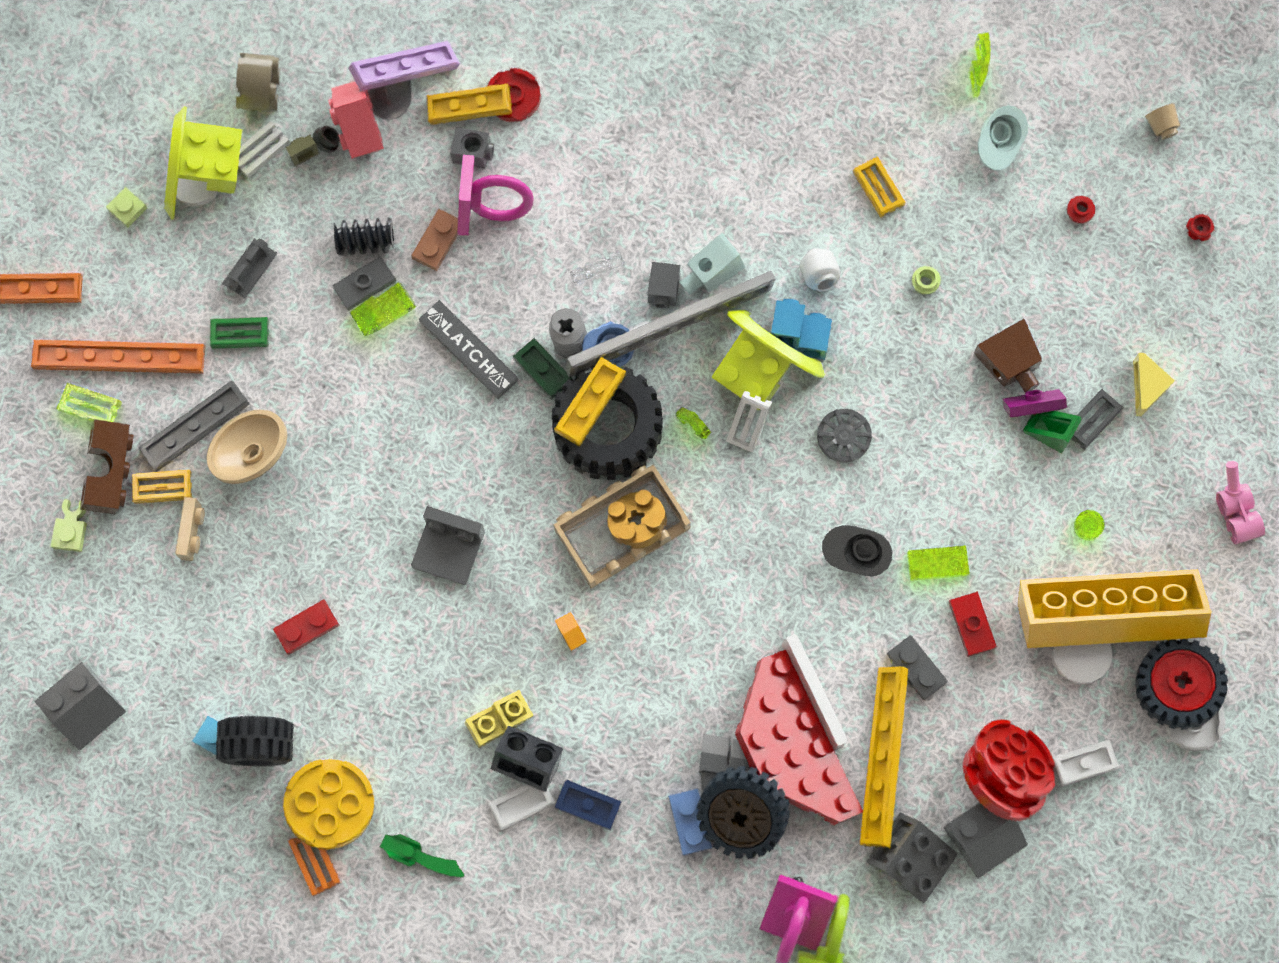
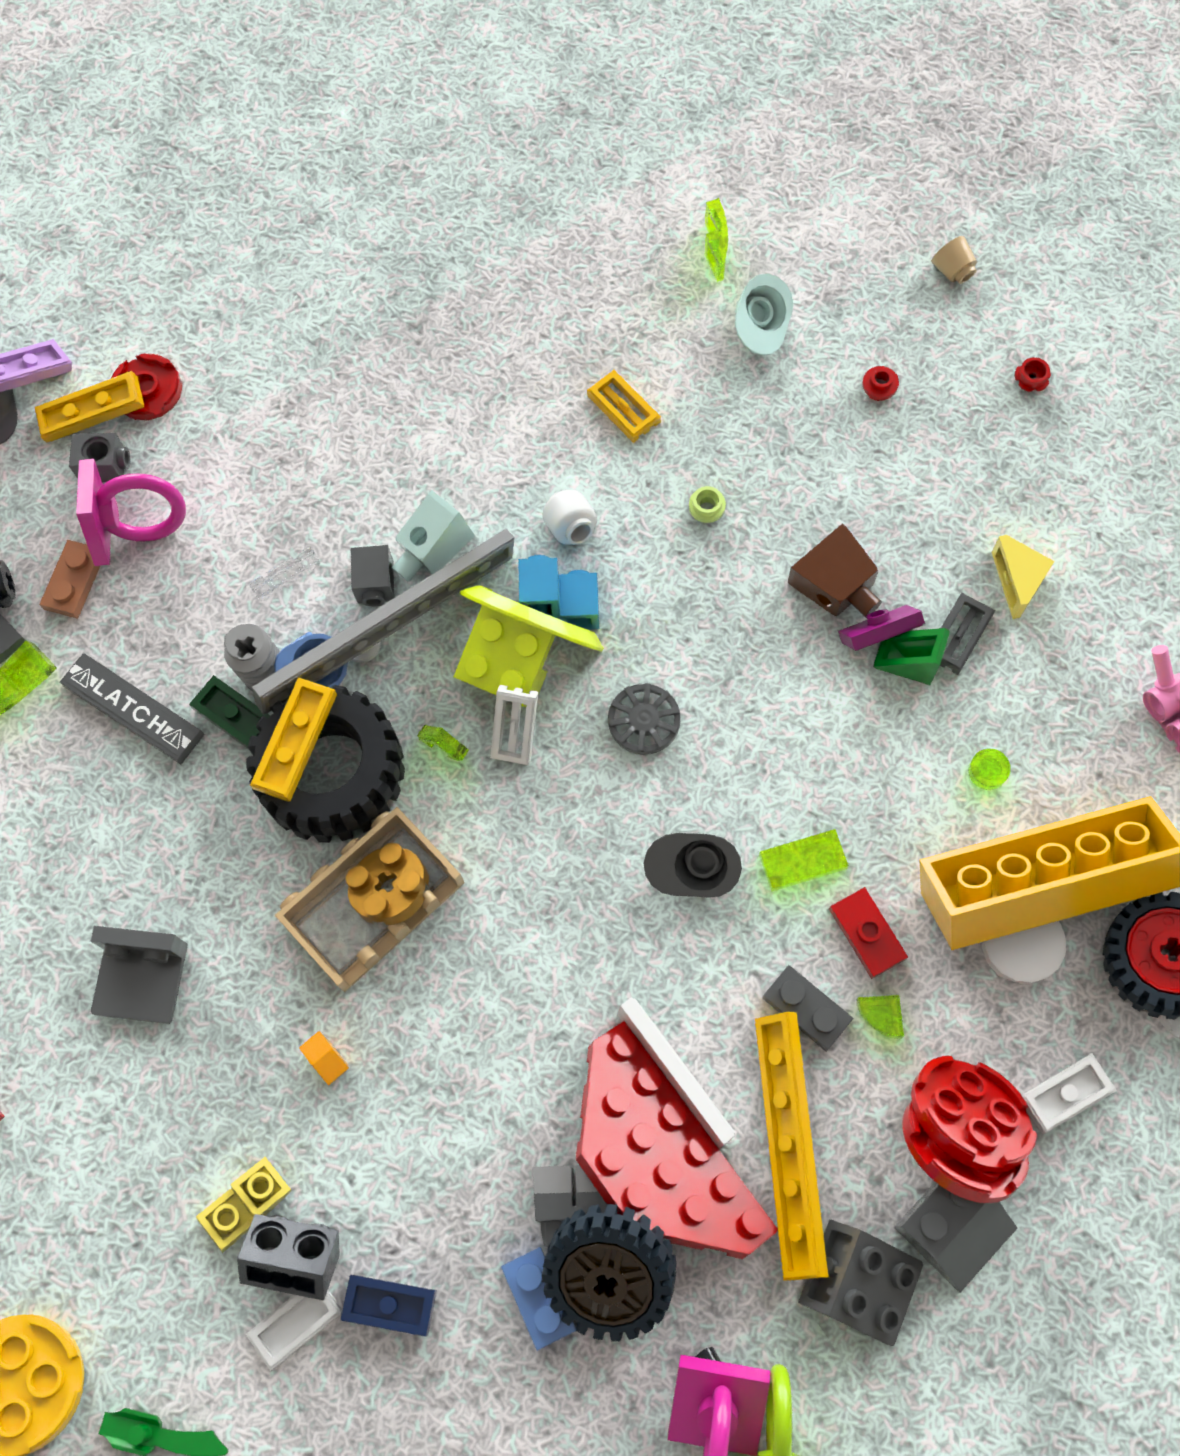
camera: 10 degrees left, 5 degrees down
(969, 682) = (882, 1014): none -> clear neon green tile

